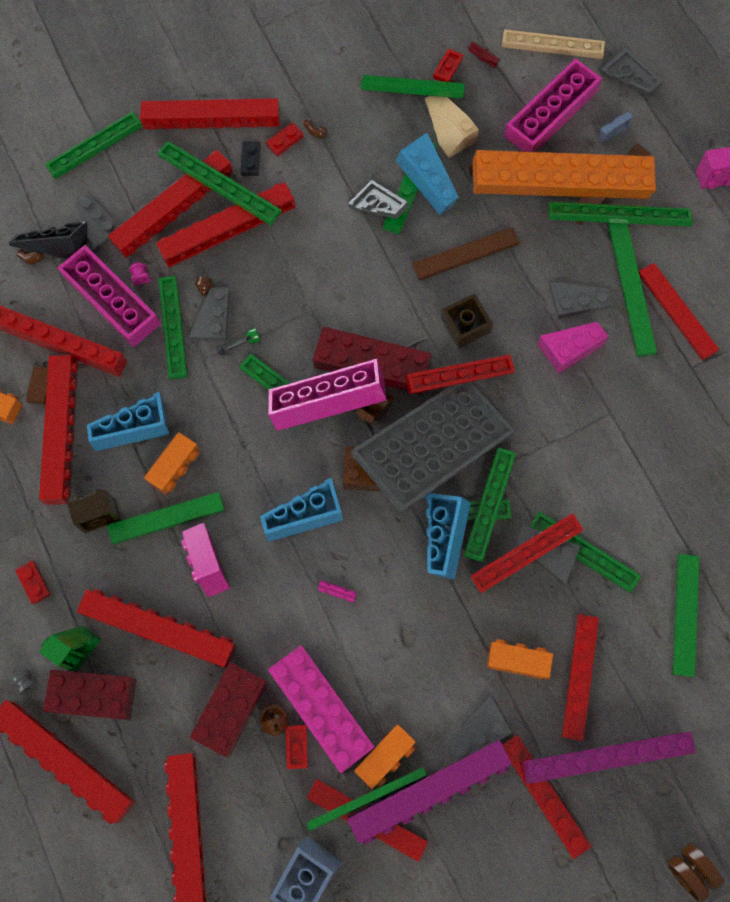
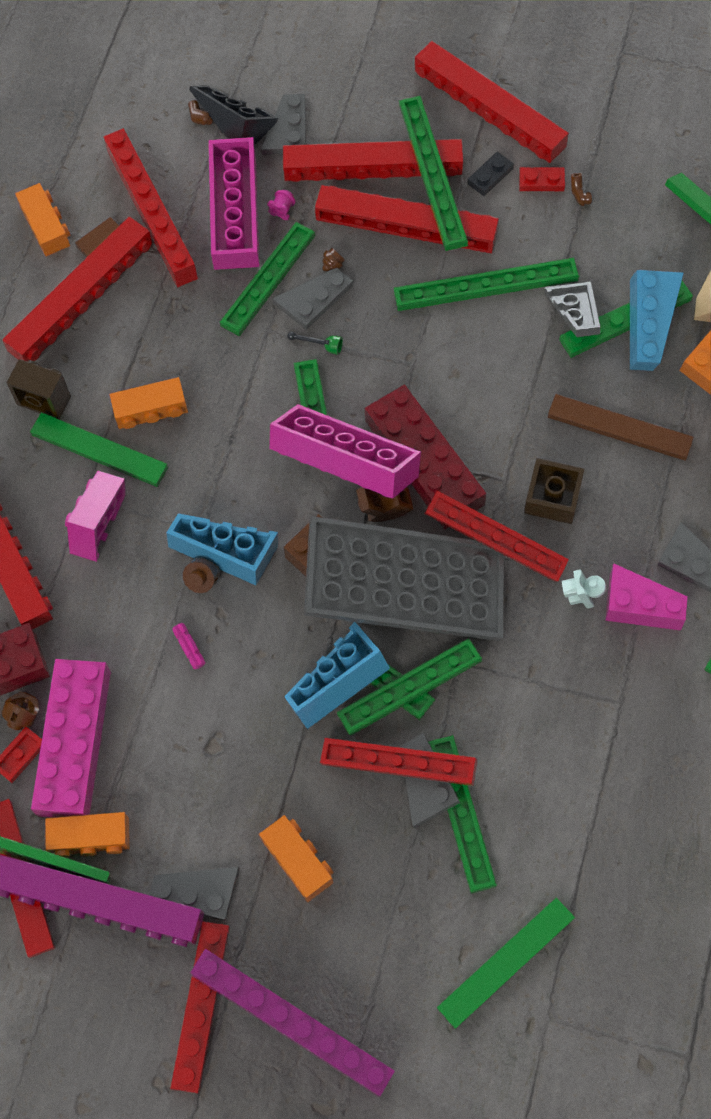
camera: 40 degrees right, 5 degrees down
(93, 145) = (352, 52): green tile -> none
(130, 425) = (145, 338): dark azure wedge -> none
(305, 542) = (201, 575): none -> reddish brown piece
(309, 229) = (486, 284): none -> green tile
(536, 363) = (581, 588): none -> light aqua hips
(580, 678) = (341, 928): red plate -> none

